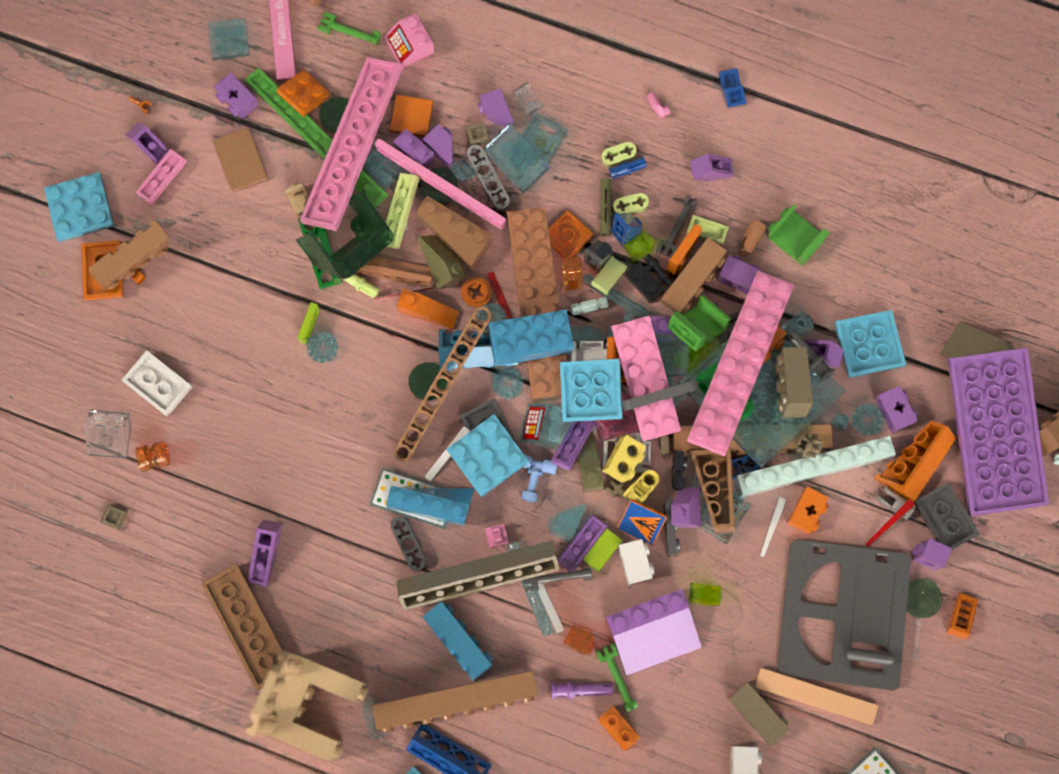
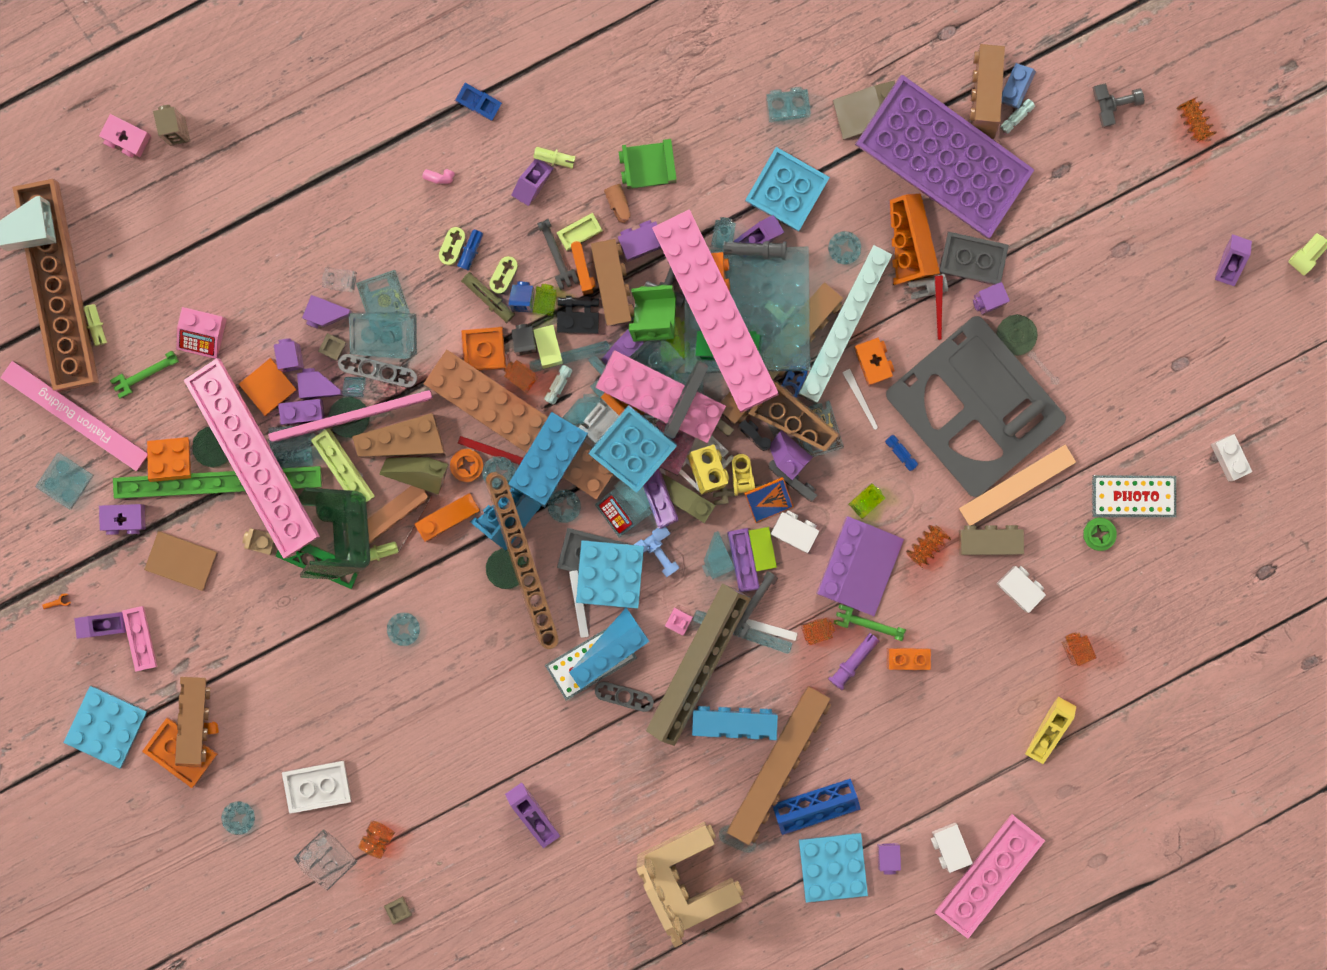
camera: 50 degrees left, 10 degrees up
(87, 340) = (236, 827): none -> clear light blue gear
(244, 623) = (578, 877): medium nougat plate -> none
(308, 323) = (374, 623): lime tile -> none
(444, 108) = (288, 355): none -> medium lavender brick
(713, 668) = (927, 545): none -> clear orange piece
(742, 168) = (553, 157): none -> yellowish green axle
(761, 590) = (901, 452): none -> blue axle
(793, 382) = (767, 285): dark tan brick -> none
(809, 446) = (826, 316): dark tan gear -> none
(840, 422) = (827, 270): clear light blue hinge -> none
(896, 419) = (864, 226): medium lavender brick -> none
(924, 297) = (788, 111): none -> clear light blue brick
(958, 630) = (1063, 312): orange slope -> none

